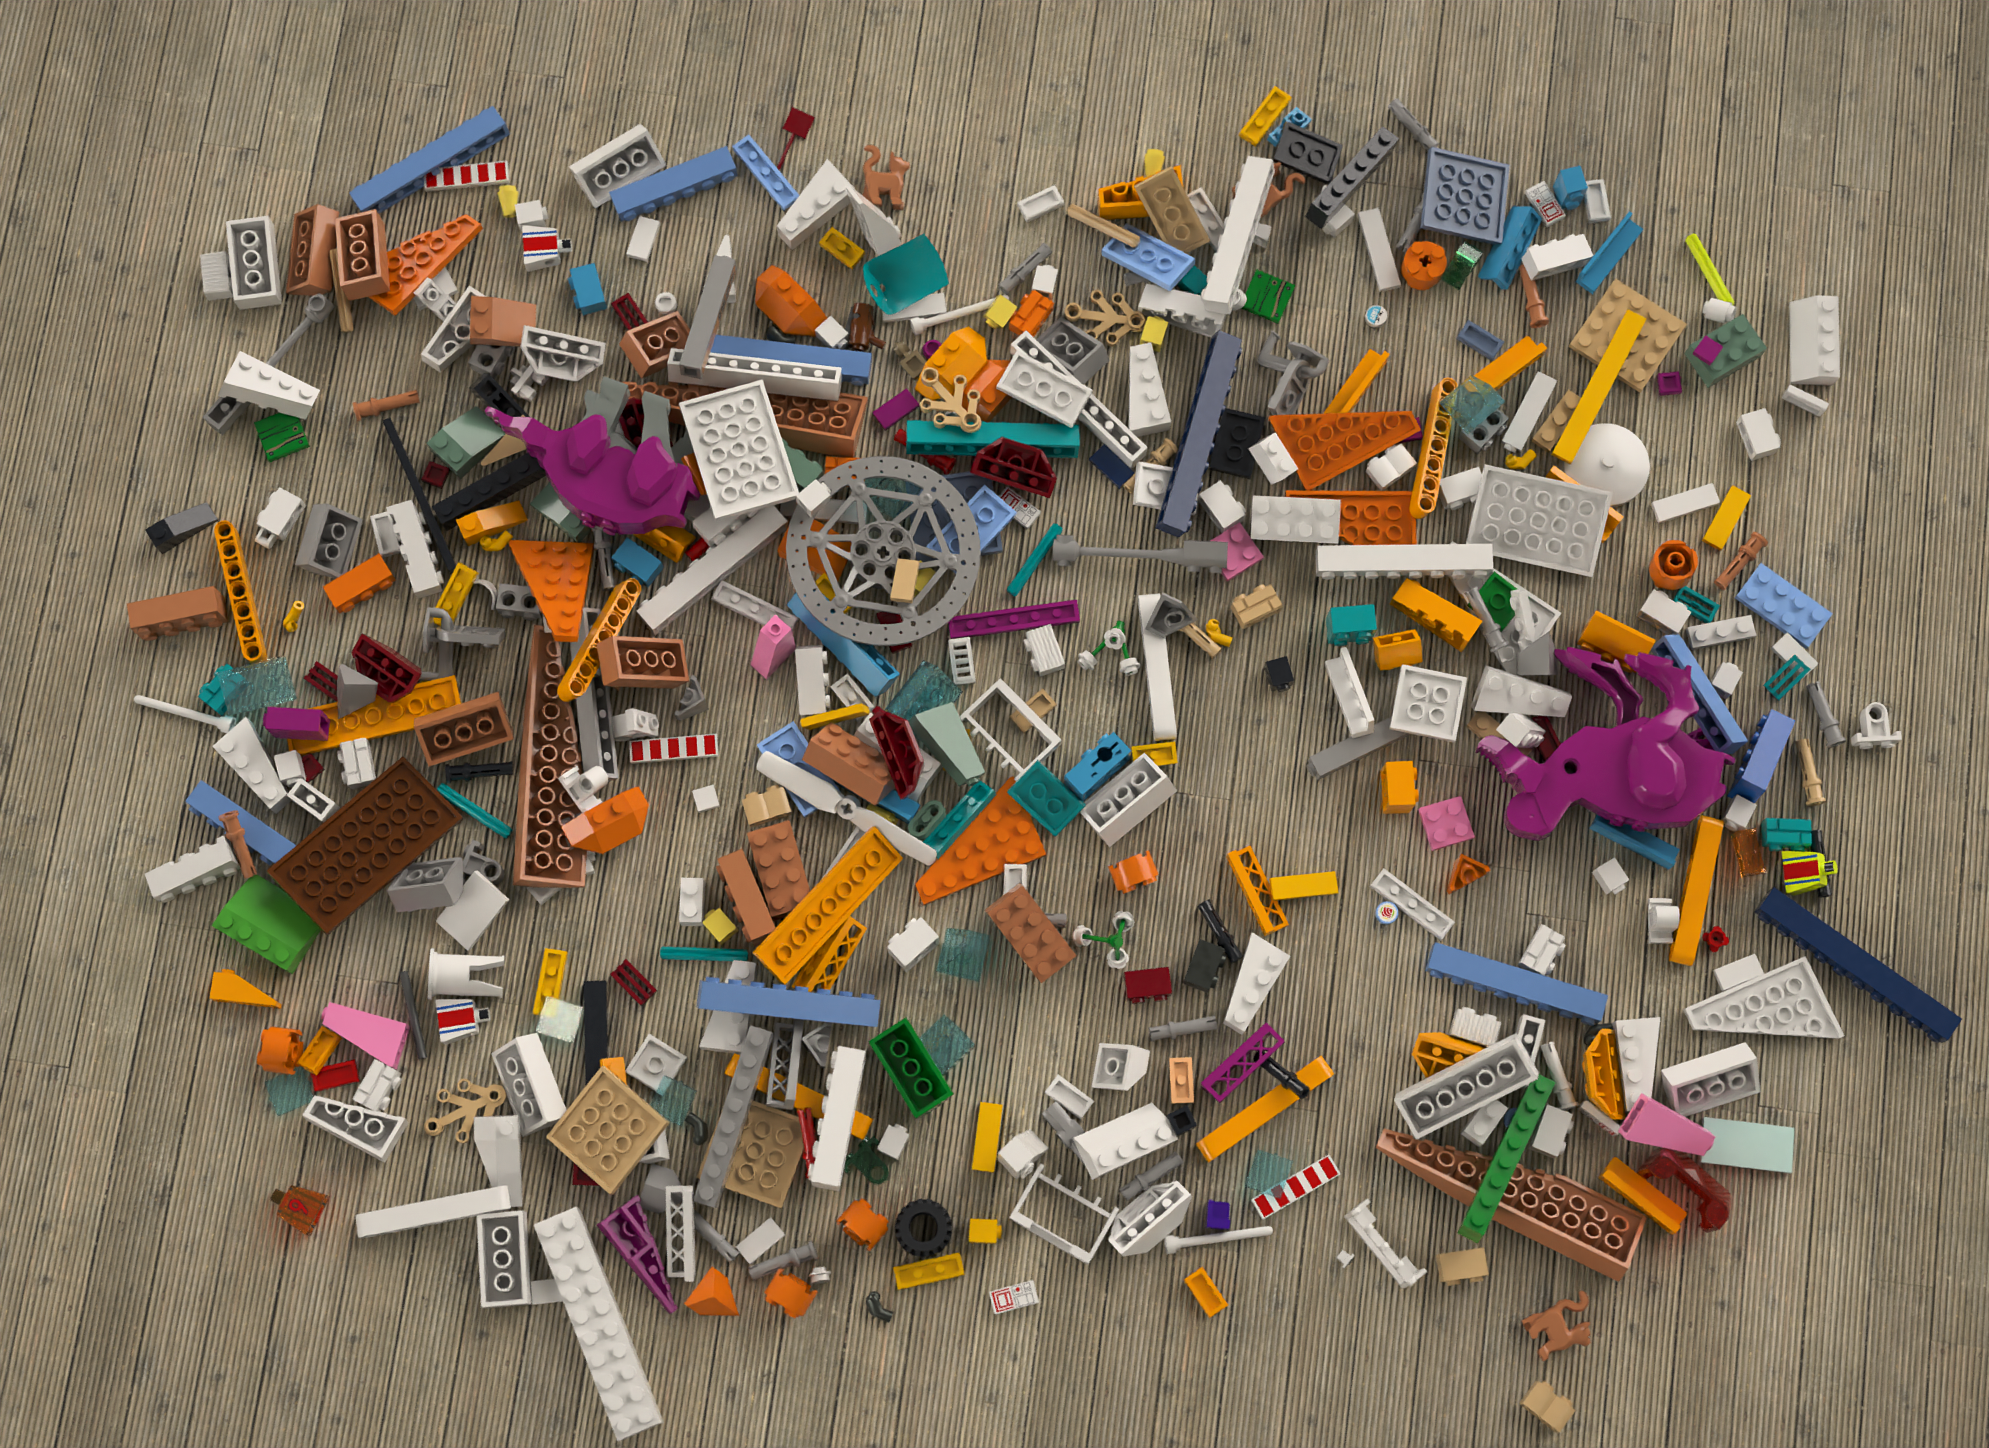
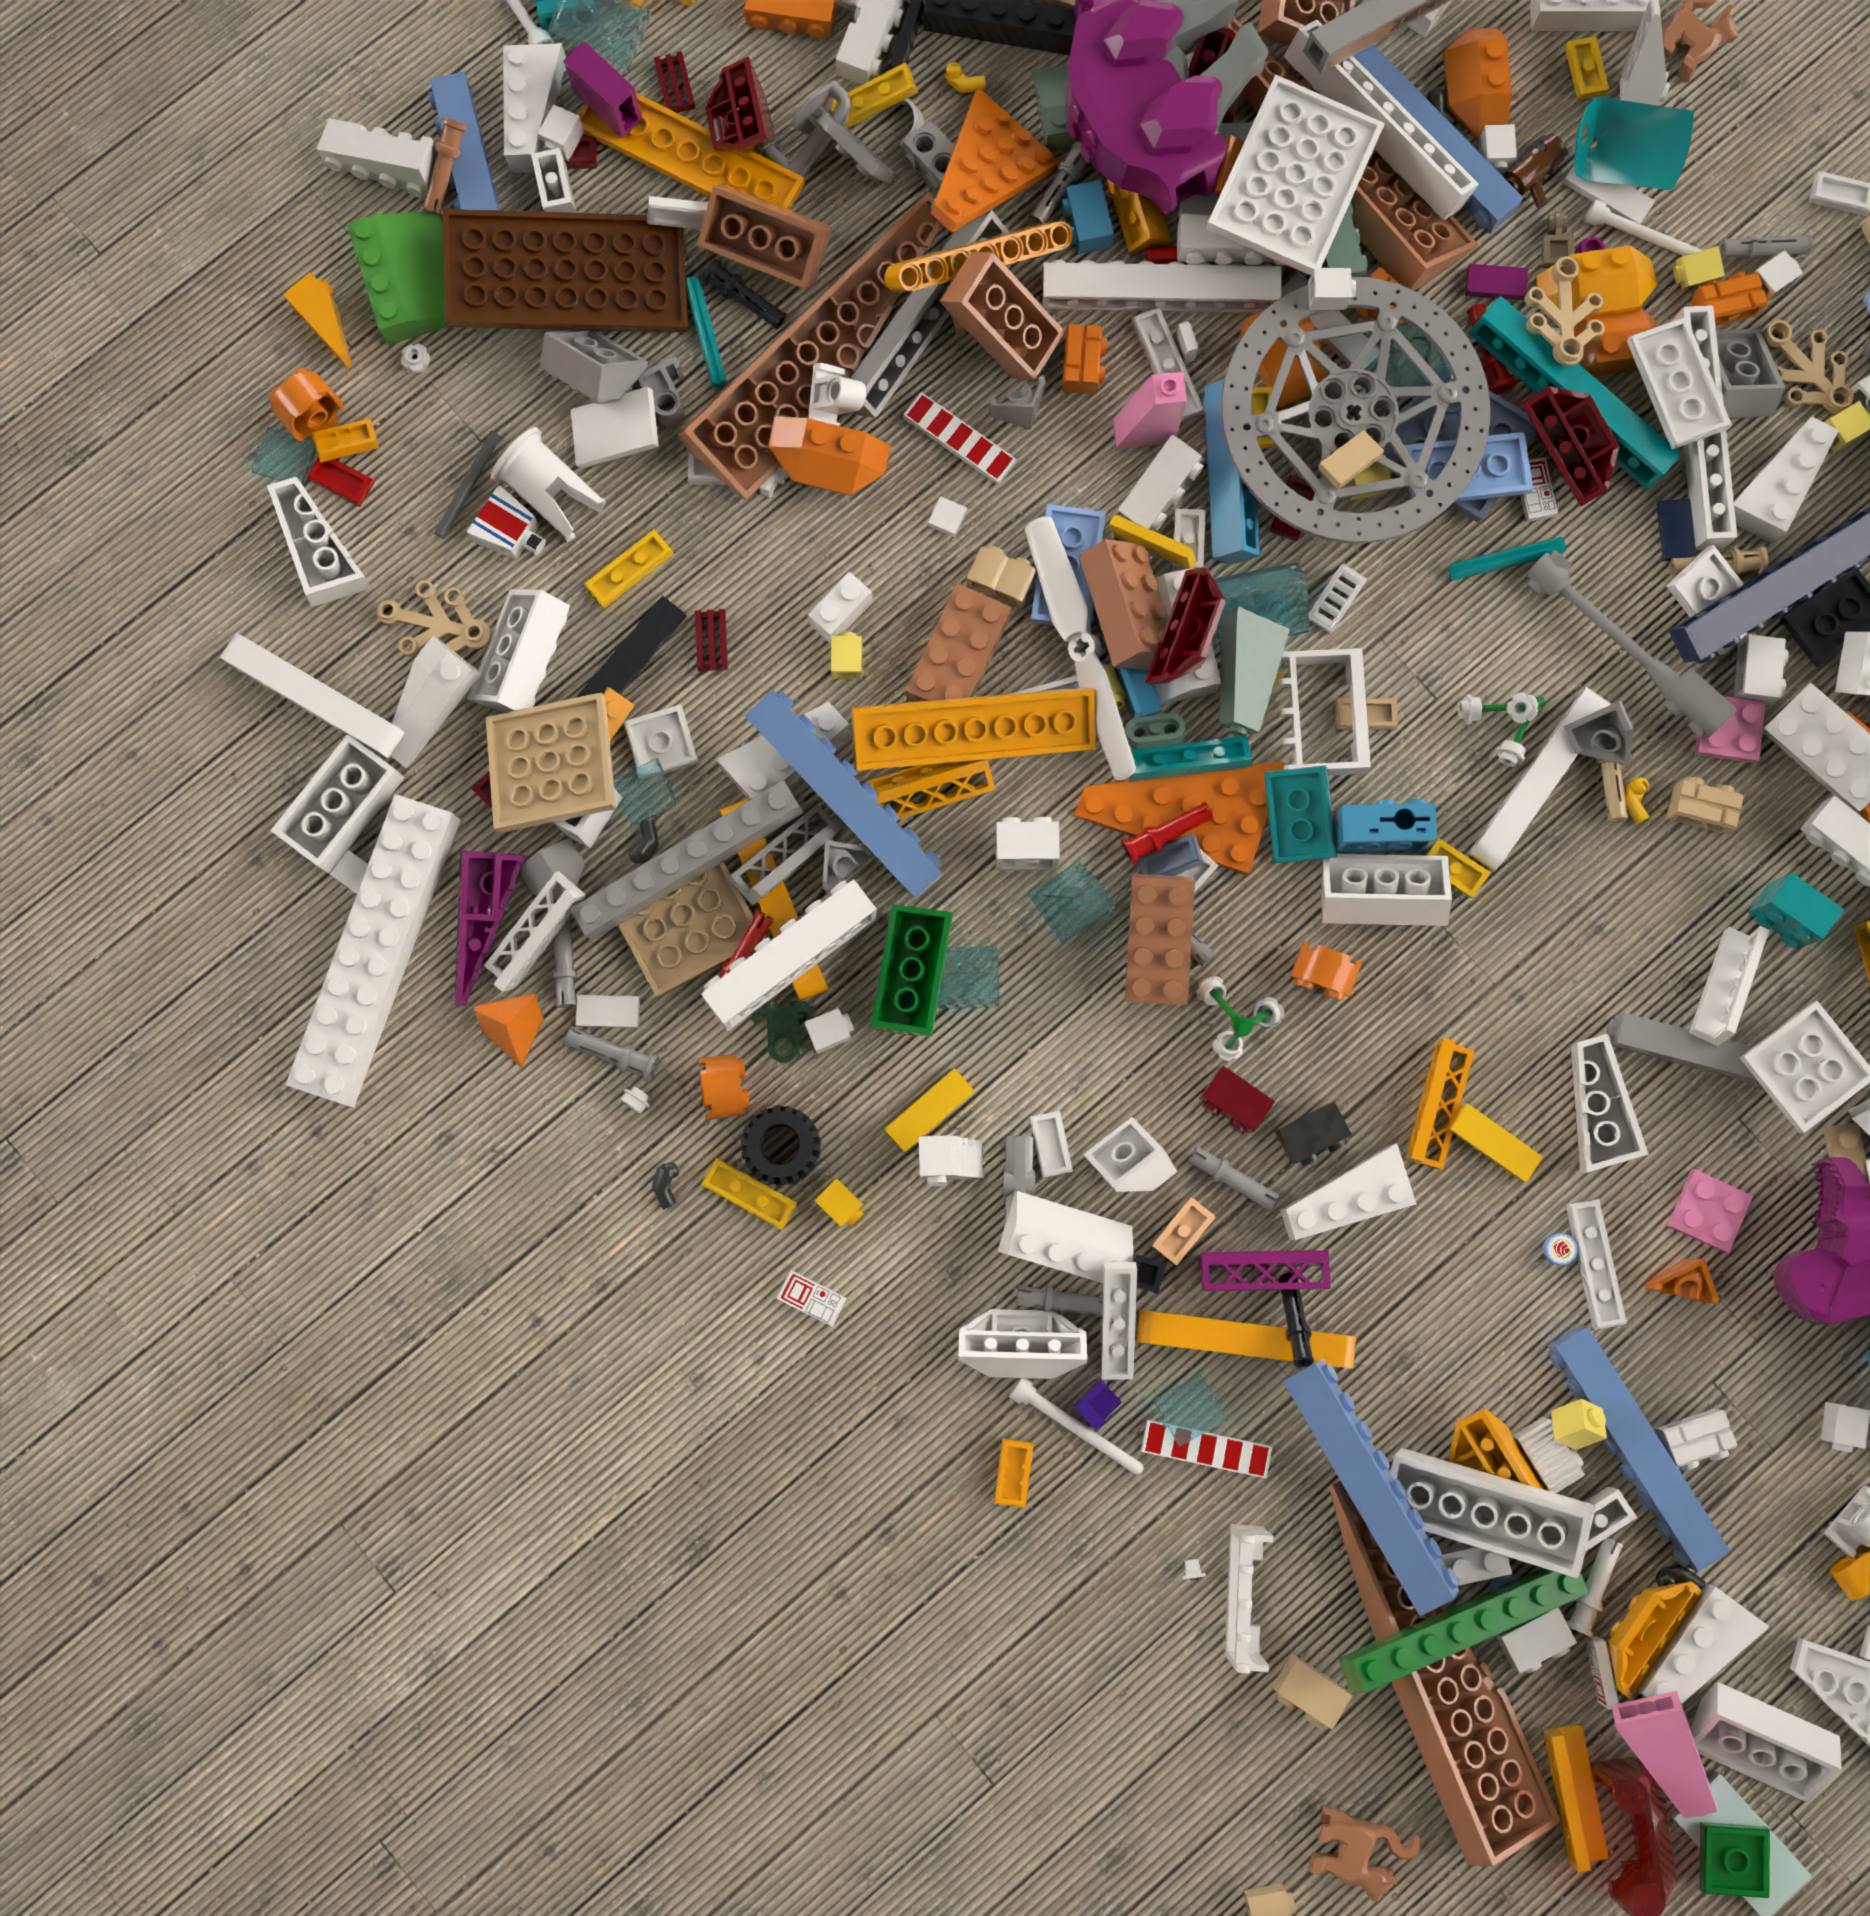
camera: 45 degrees right, 5 degrees up
(300, 1207) = (191, 580): clear orange torso -> none
(315, 974) = (419, 364): none -> white plate
(353, 690) = (690, 108): light grey slope -> none
(357, 763) = (632, 184): white brick -> none
(372, 1033) = (409, 468): bright pink slope -> none
(377, 1086) = (369, 524): white brick -> none
(401, 757) = (676, 212): none -> white tile
(491, 521) = (975, 53): light orange slope -> none
(559, 1019) = (604, 612): clear light blue piece -> none
(634, 725) = (940, 378): white pin -> none
(704, 645) = (1082, 359): none -> orange brick
(705, 954) = (806, 671): teal axle -> none
(745, 892) = (899, 645): nougat brick -> none
(754, 587) = (1186, 342): none -> white tile
(790, 1293) = (587, 1091): orange brick -> none
(979, 879) = (1154, 838): none -> red pin
(998, 882) = (1173, 858): none -> sand blue tile
(1014, 619) = (1431, 602): magenta plate -> none
(1044, 649) = (1434, 660): white brick -> none
(1051, 1237) = (913, 1300): white hinge -> none
(1189, 1159) = (1118, 1320): none -> white plate
(1224, 939) = (1362, 1112): black pin -> none
(1279, 674) = (1666, 898): black brick -> none
(1345, 819) = (1604, 1112): none -> white wedge
(1395, 1126) = (1372, 1487): none -> medium blue brick
(1397, 649) = (1822, 980): light orange brick -> none
(1398, 787) = (1694, 1128): light orange brick -> none
(1474, 998) = (1578, 1424): none -> light yellow brick
(1748, 1154) = (1734, 1860): none -> green tile

